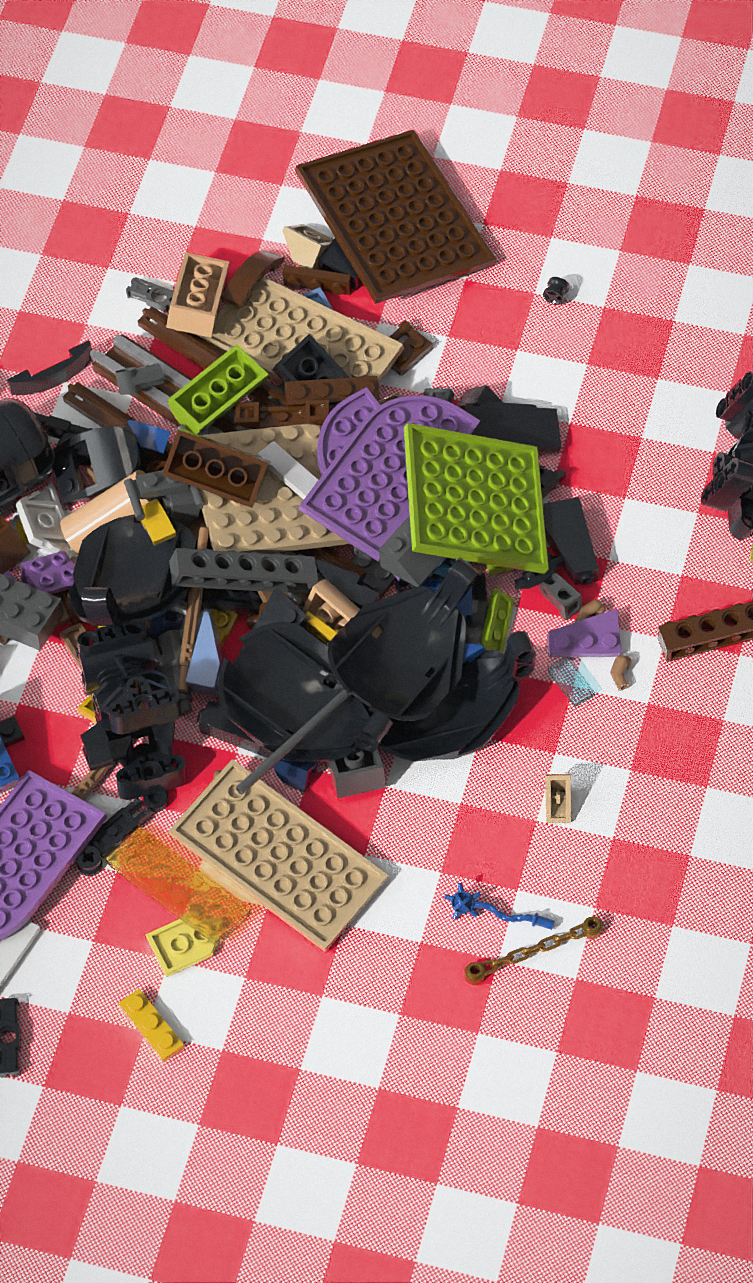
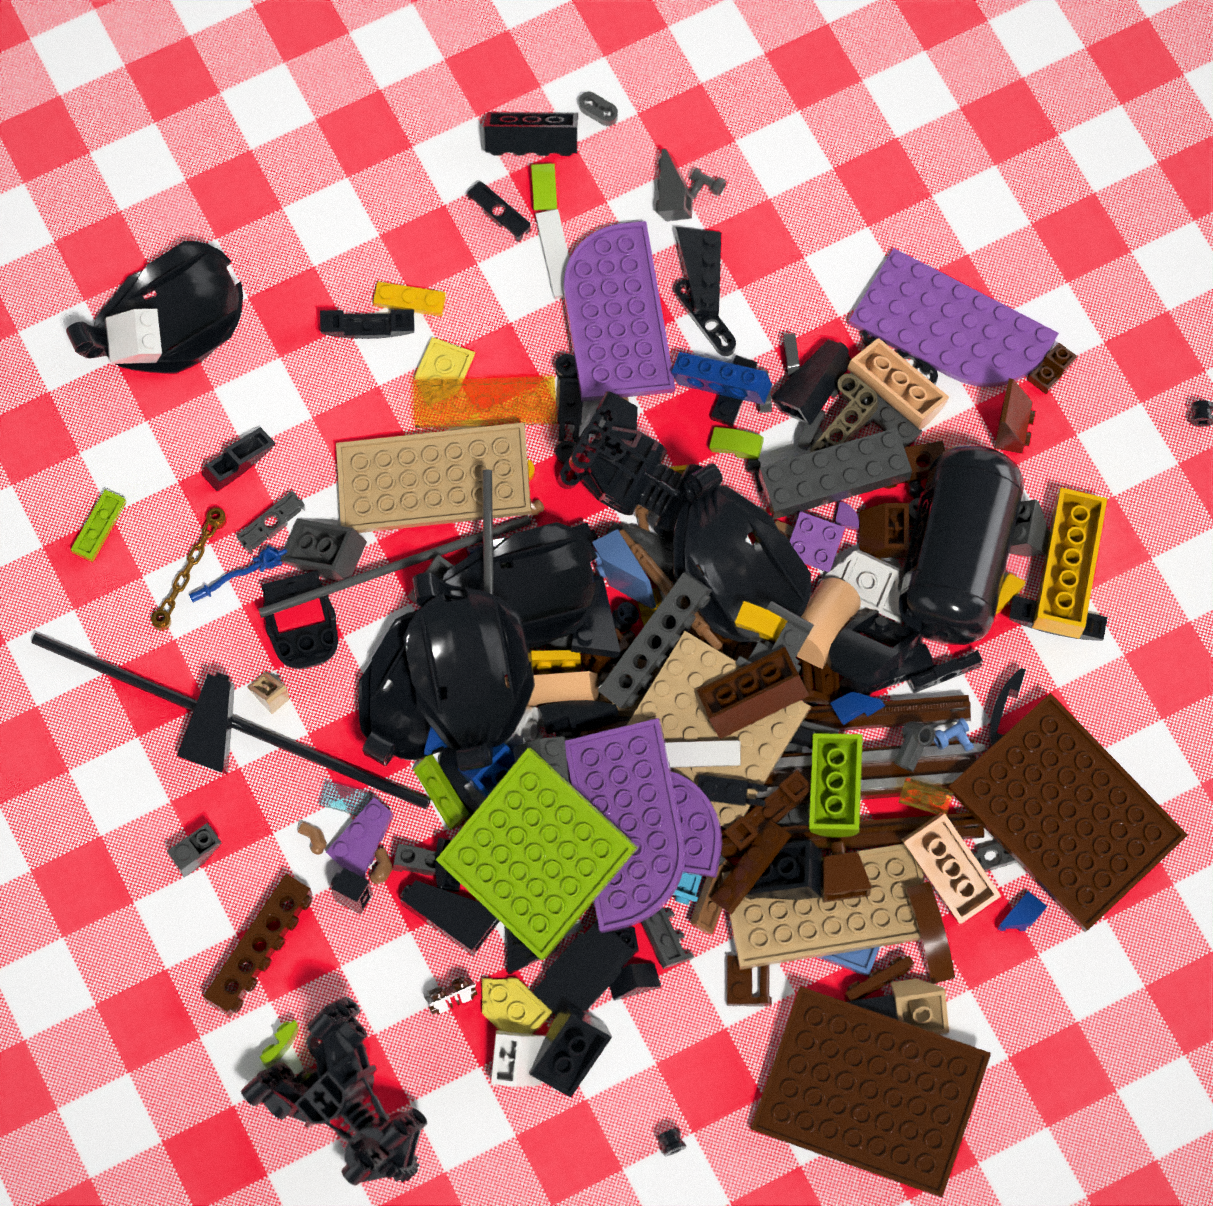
camera: 135 degrees right, 10 degrees up
(27, 698) = (739, 442): none -> lime slope
(32, 672) = (754, 466): none -> black hand
(83, 275) = (1067, 812): none -> reddish brown plate
(99, 368) = (958, 730): none -> medium blue piece
(166, 342) = (925, 796): none -> clear yellow plate
(175, 248) = (1024, 913): none -> blue slope
(203, 1028) = (366, 326): none -> black slope
(233, 636) = (625, 611): none -> black wheel
(273, 341) = (843, 875): none -> reddish brown torso
(295, 435) = (730, 790): none -> black hinge
(331, 1166) = (193, 302): none -> black windscreen
(389, 815) = (390, 568): none -> dark grey piece
(408, 1162) = (134, 337): none -> white slope
(414, 1003) = (237, 459): none -> slope
(415, 874) = (324, 548): none -> dark grey slope
(452, 933) = (257, 532): none -> dark grey piece
(492, 810) = (306, 645): none -> black slope
(567, 388) = (570, 1050): none -> black slope
(576, 1042) = (98, 525): none -> lime plate
(584, 452) = (512, 1006): none -> light yellow tile
(616, 411) = (514, 1058): none -> white slope
(620, 483) = (463, 986): none -> reddish brown hinge
(620, 831) = (237, 723): none -> black piece
(629, 600) = (351, 890): none -> black brick
(629, 802) = (210, 726): none -> black slope
(722, 724) = (194, 850): none -> dark grey slope

